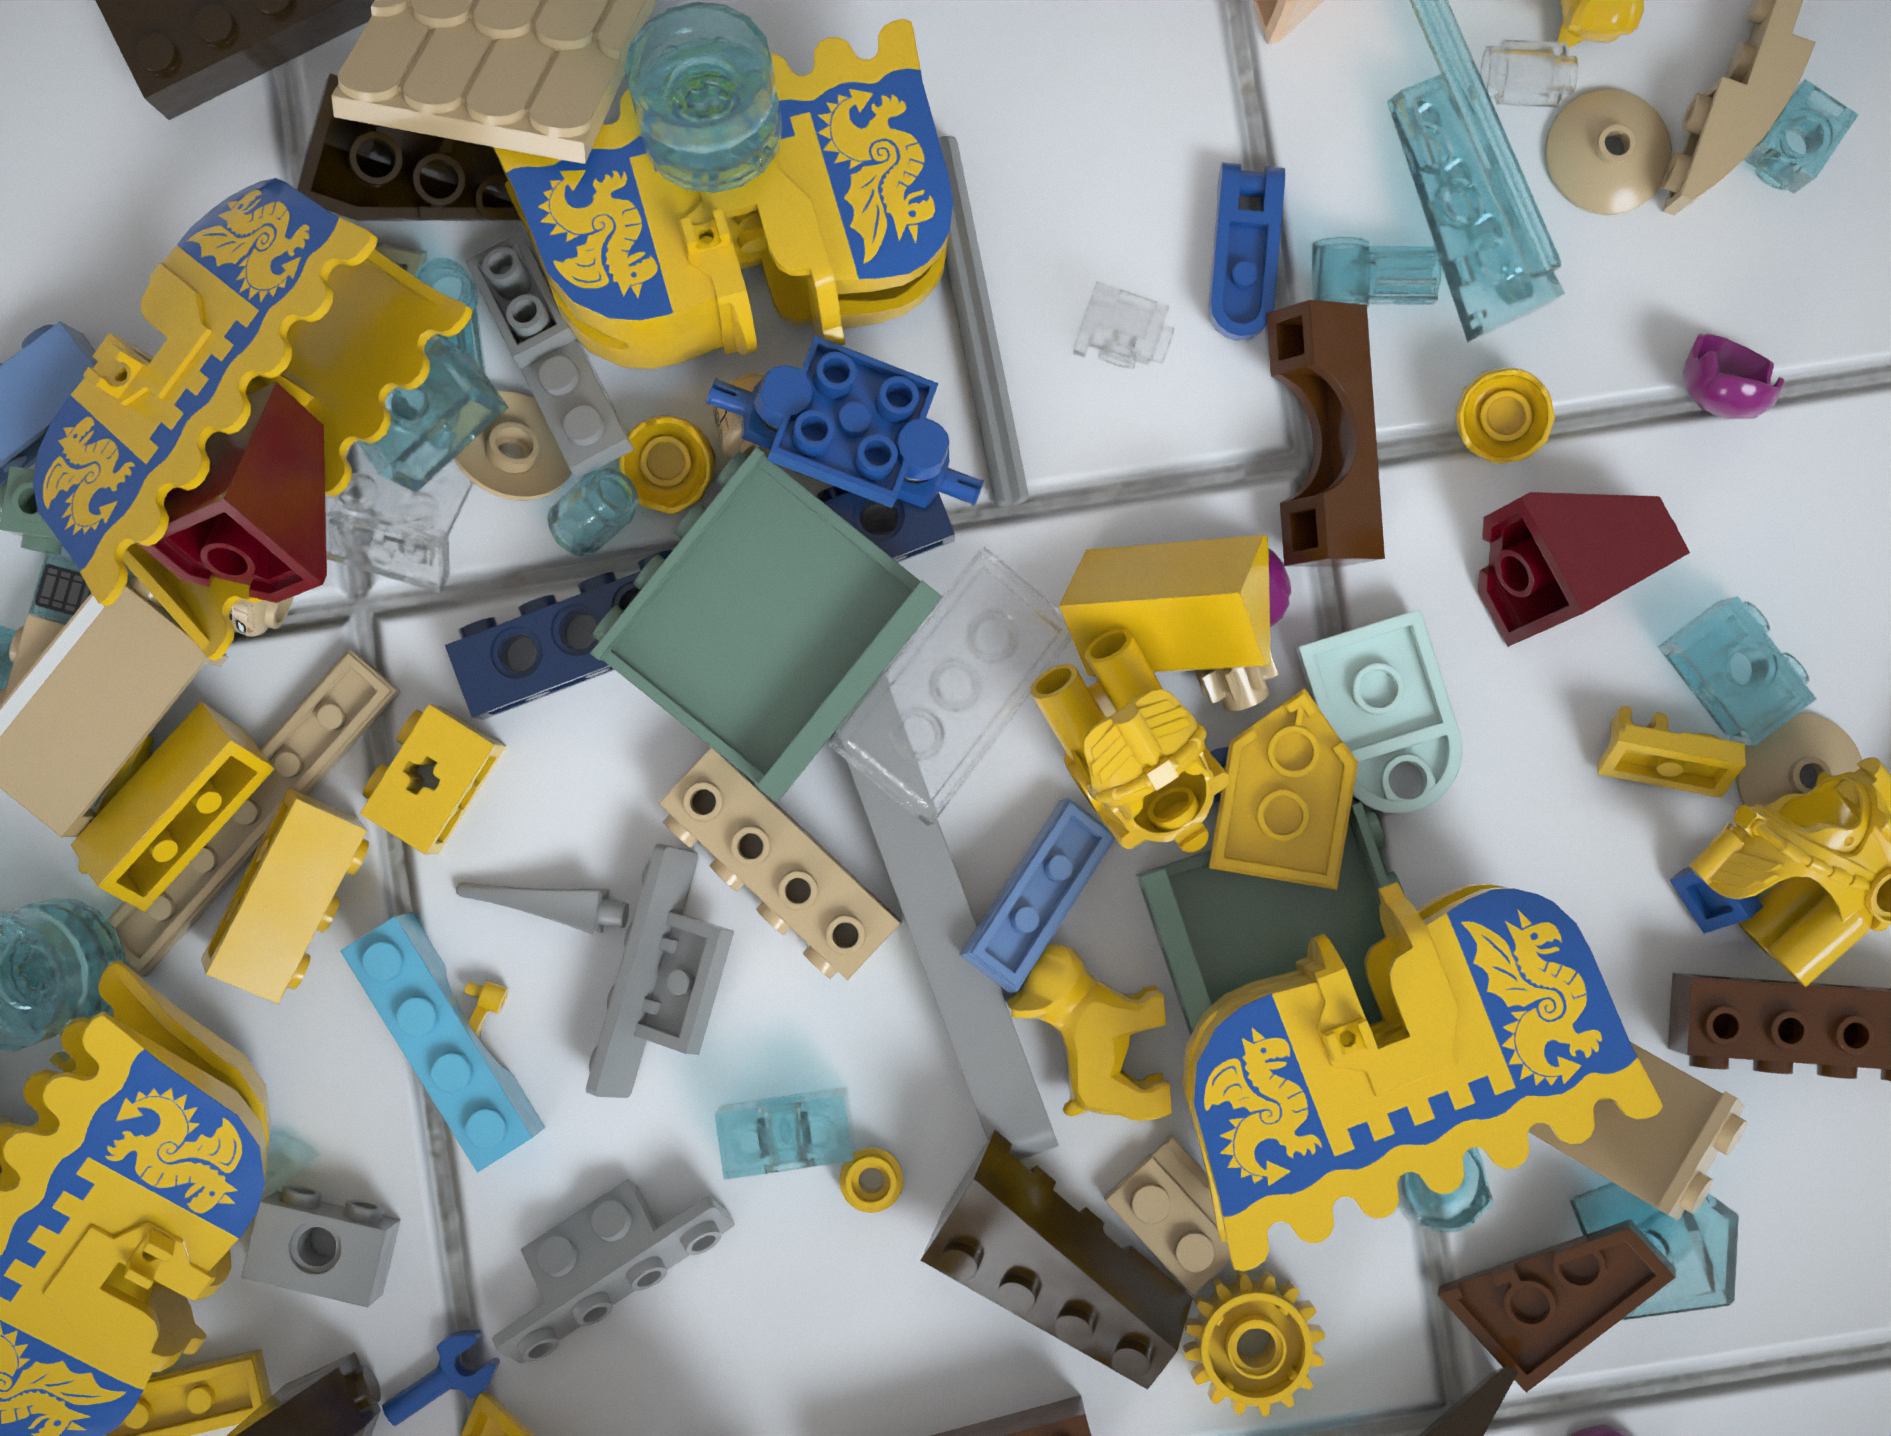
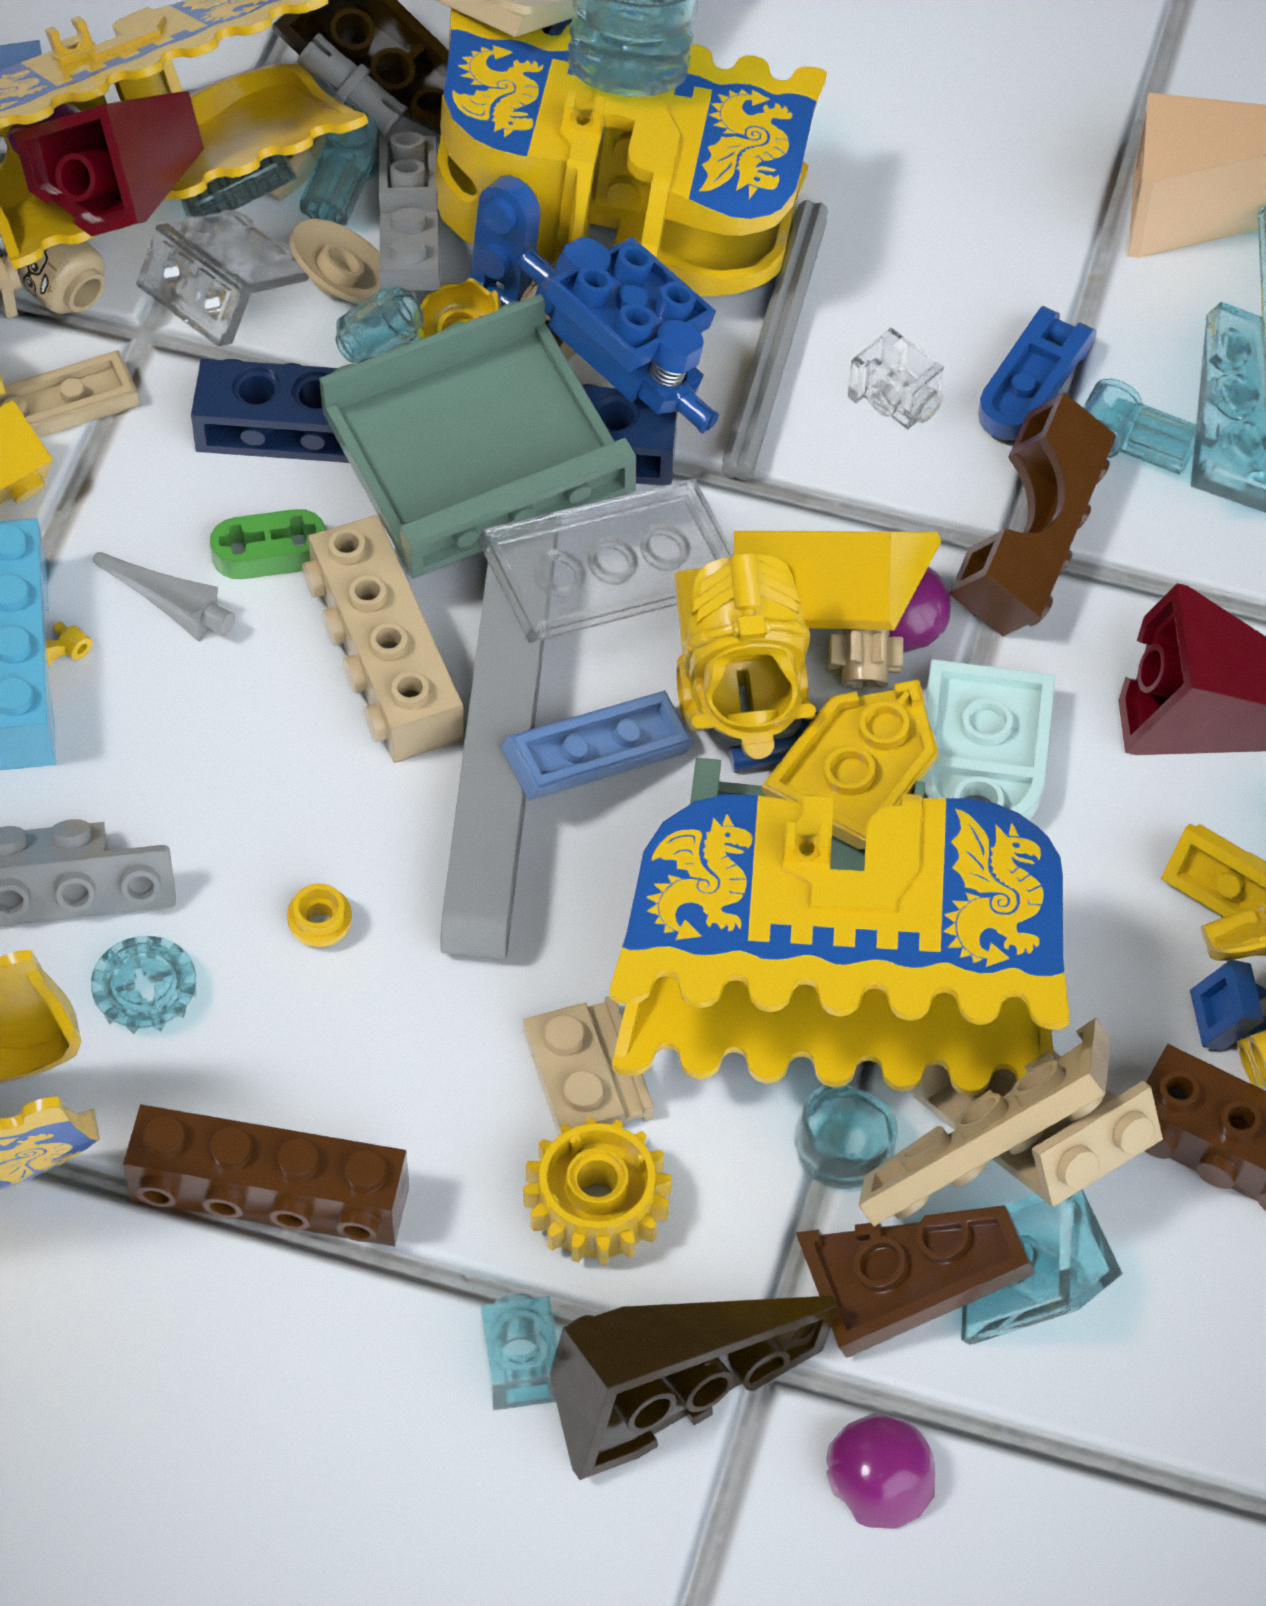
camera: 25 degrees right, 30 degrees down
(415, 229) = (351, 83): none -> light grey pin
(430, 814) = (128, 460): yellow brick -> none
(436, 418) = (289, 194): clear light blue brick -> none
(604, 789) = (266, 543): none -> bright green beam
(663, 979) = (226, 677): light grey bracket -> none
(677, 377) = (503, 232): none -> blue plate
(753, 1354) = (162, 963): none -> clear light blue gear
(785, 1133) = (266, 833): clear light blue brick -> none
(1056, 1266) = (437, 1013): dark brown wedge -> none
(1096, 1034) = (589, 876): yellow animal -> none
(1504, 415) = (1202, 554): yellow hair -> none
(1590, 1181) = (990, 1127): none -> tan wing

